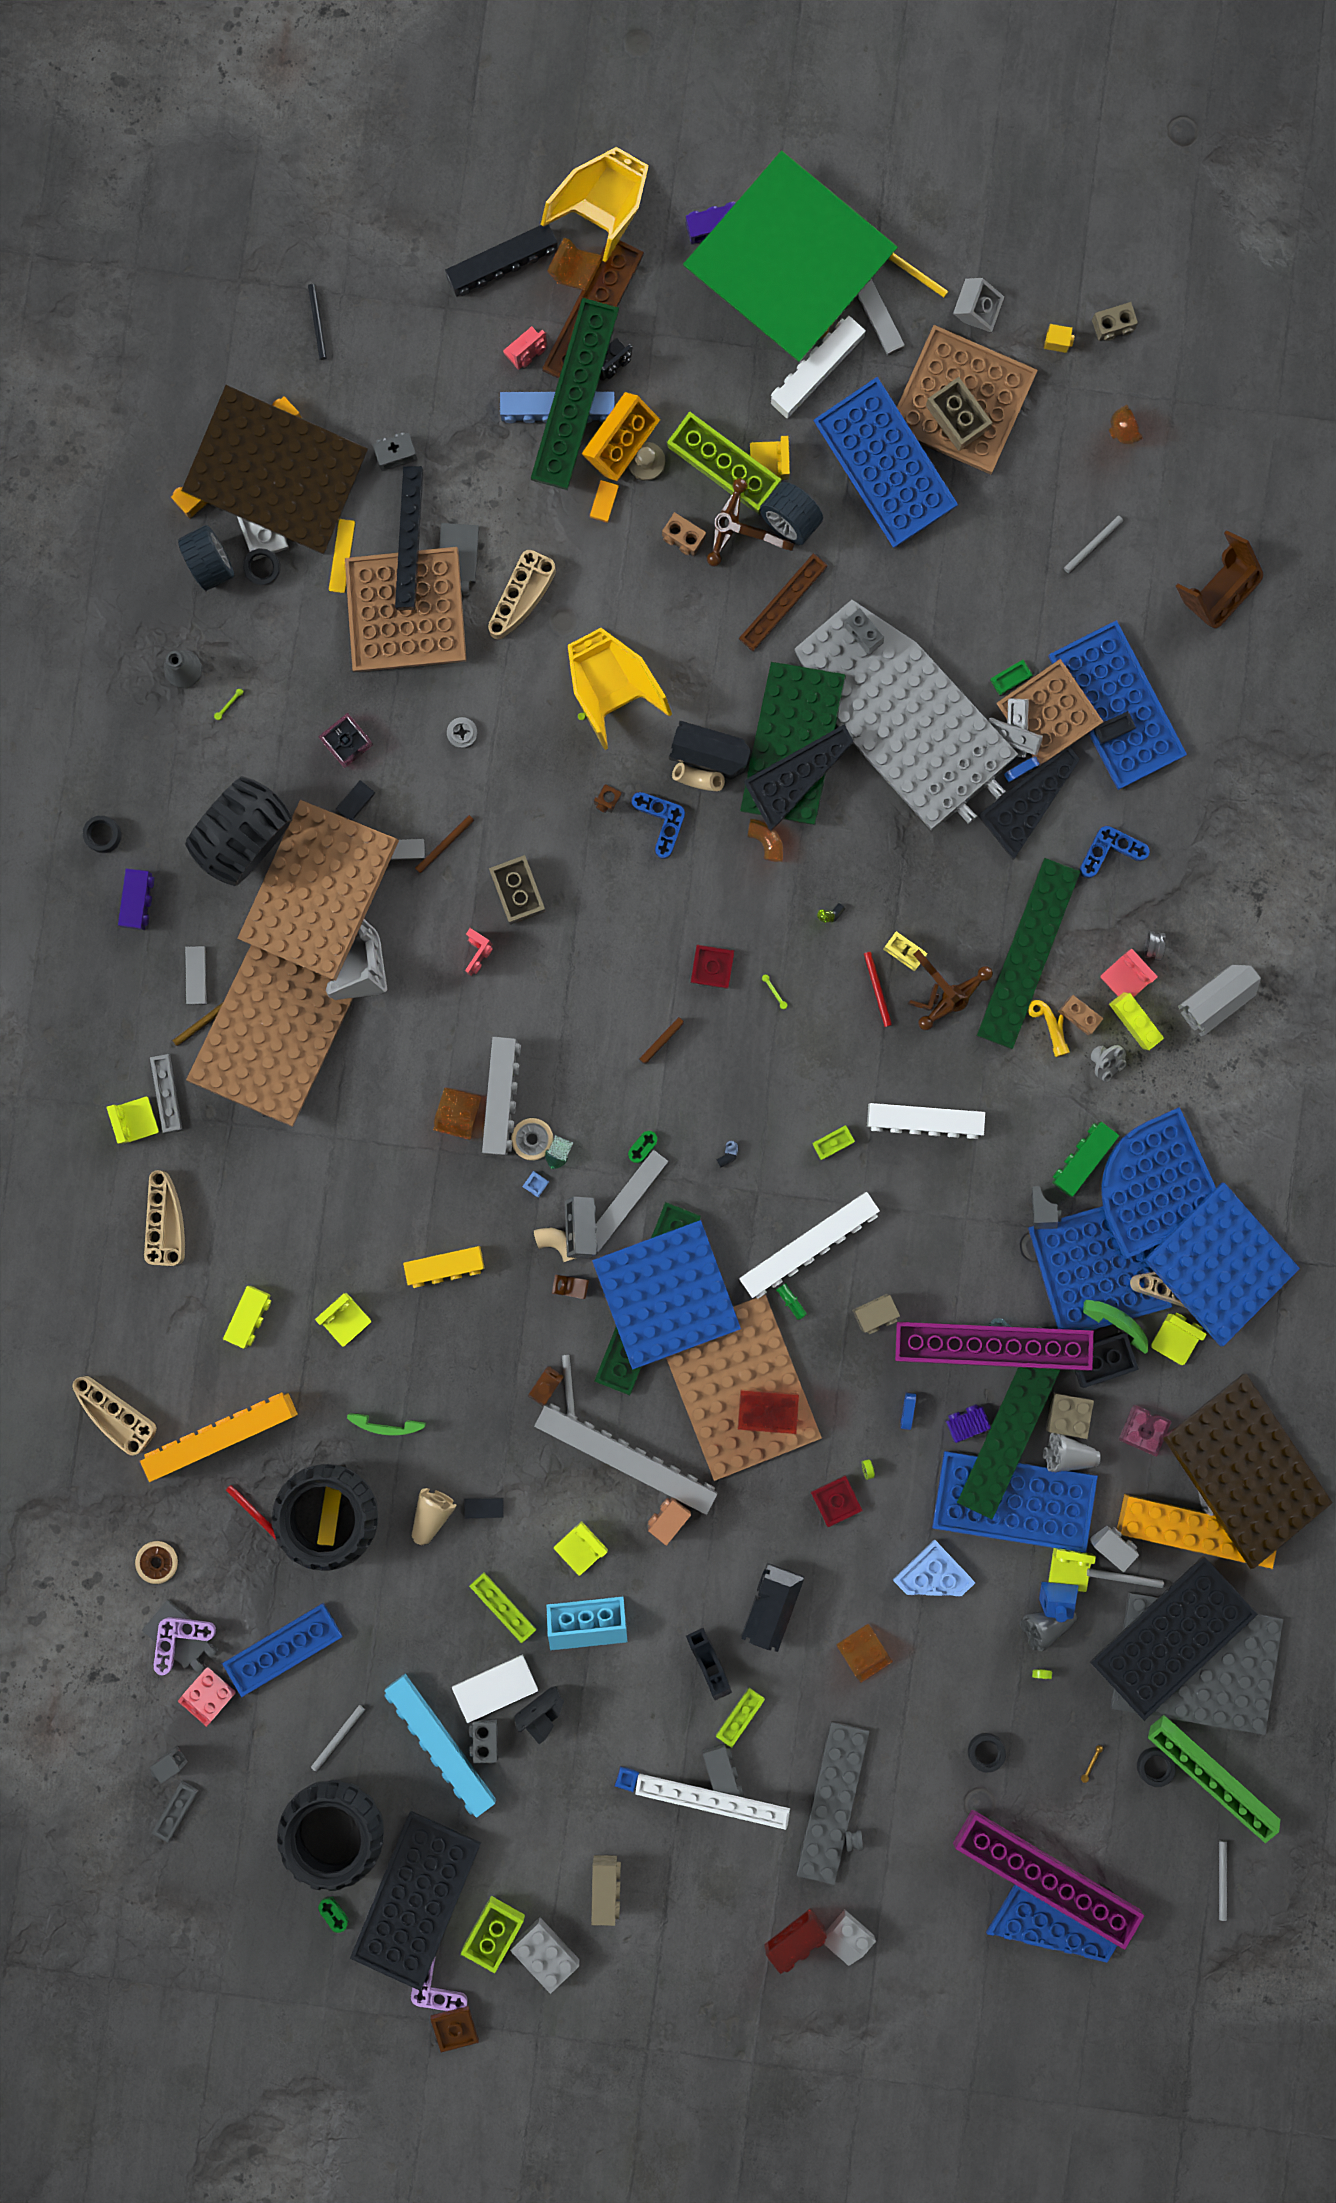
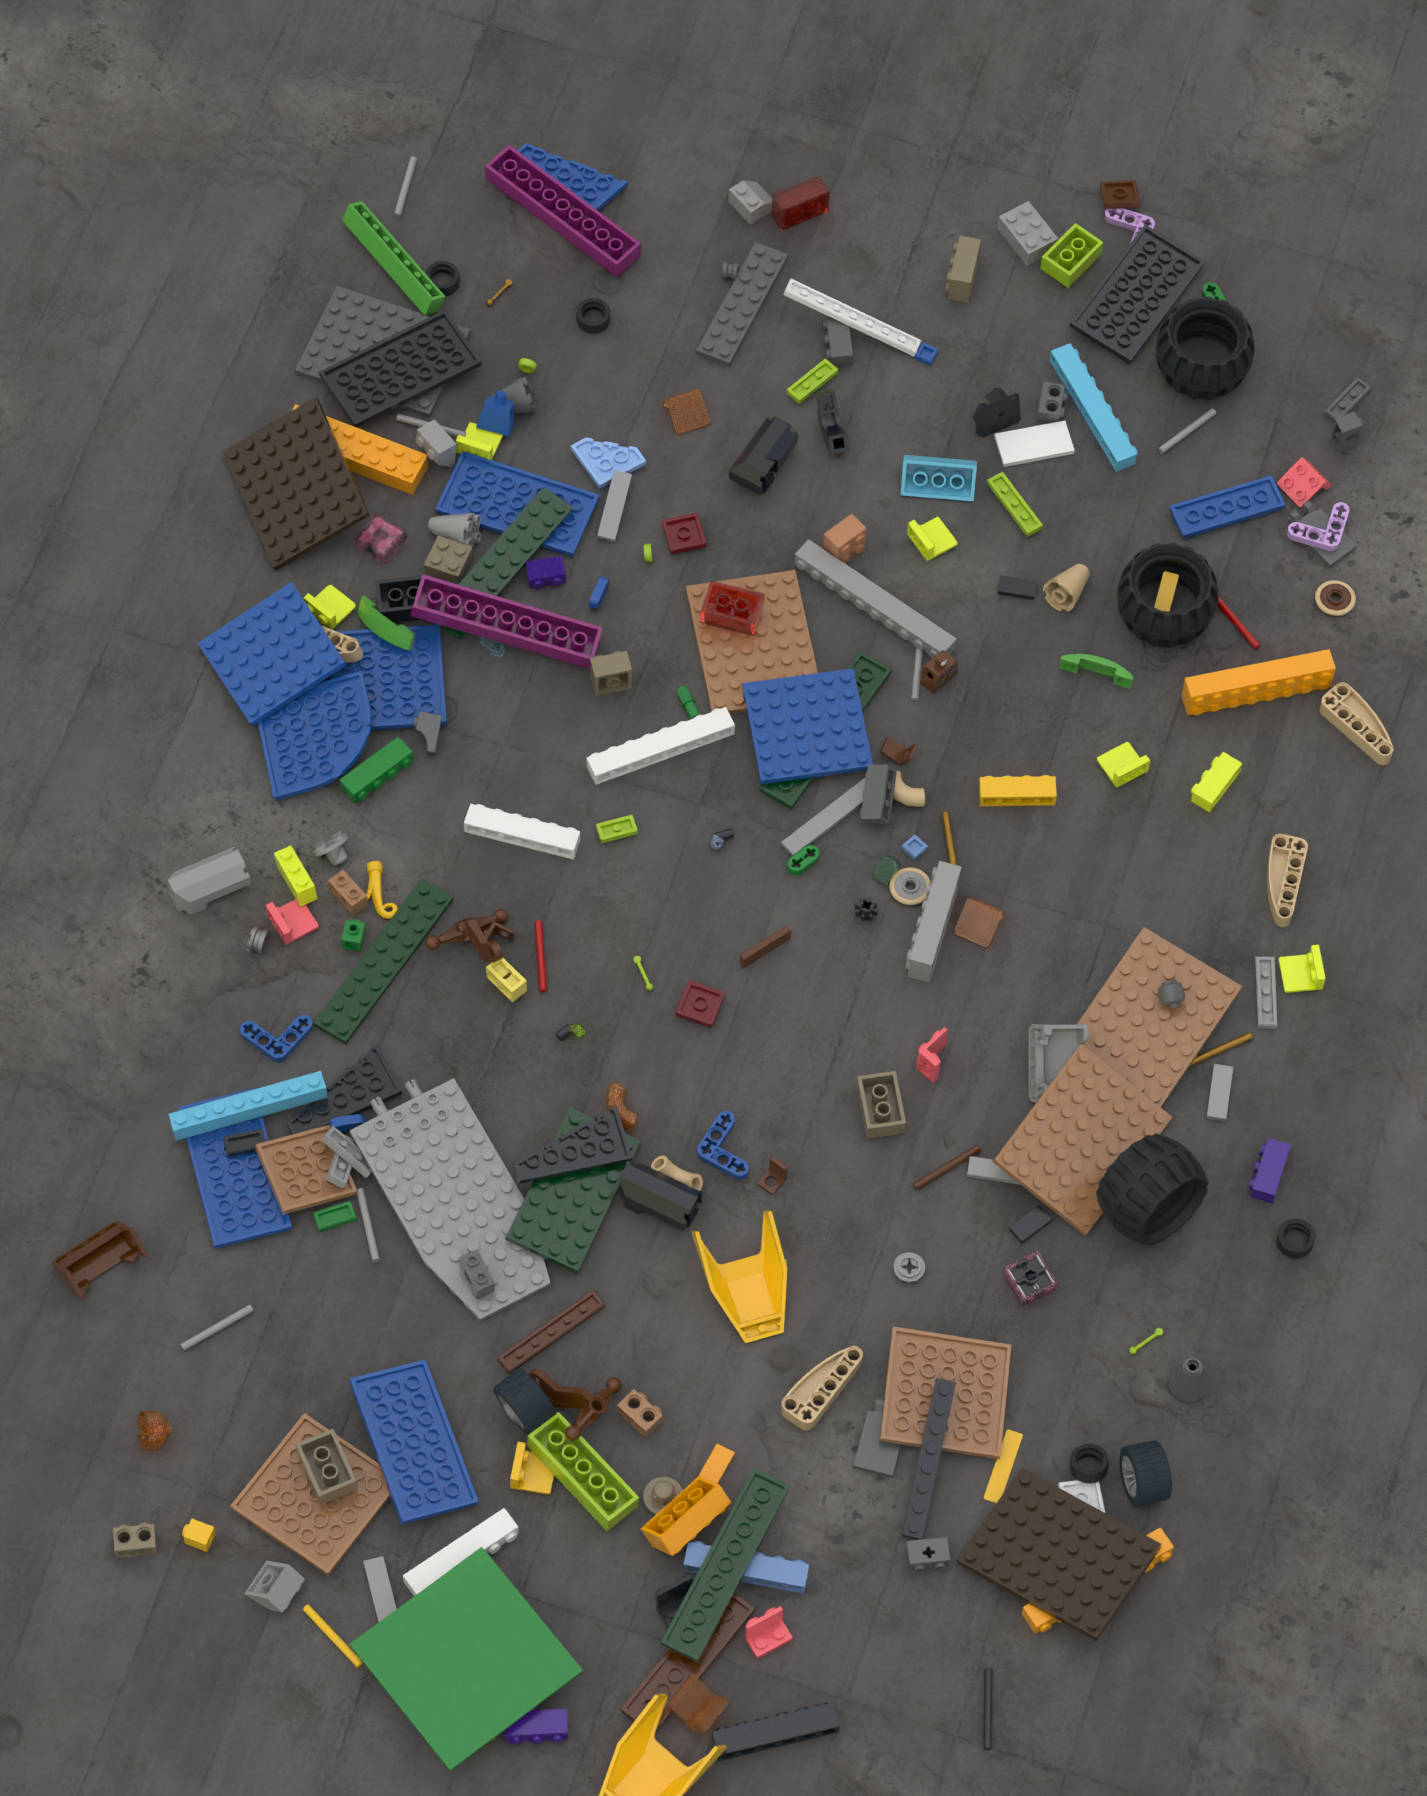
camera: 170 degrees left, 25 degrees down
(253, 1053) = (1171, 993): none -> dark grey head
(500, 1191) = (949, 838): none -> pearl gold bar
(571, 1097) = (866, 909): none -> black gear
(914, 1518) = (614, 506): none -> light grey tile
(978, 675) = (368, 1225): none -> light grey bar
(1064, 972) = (353, 935): none -> green brick
(1120, 761) = (248, 1105): none -> medium azure brick

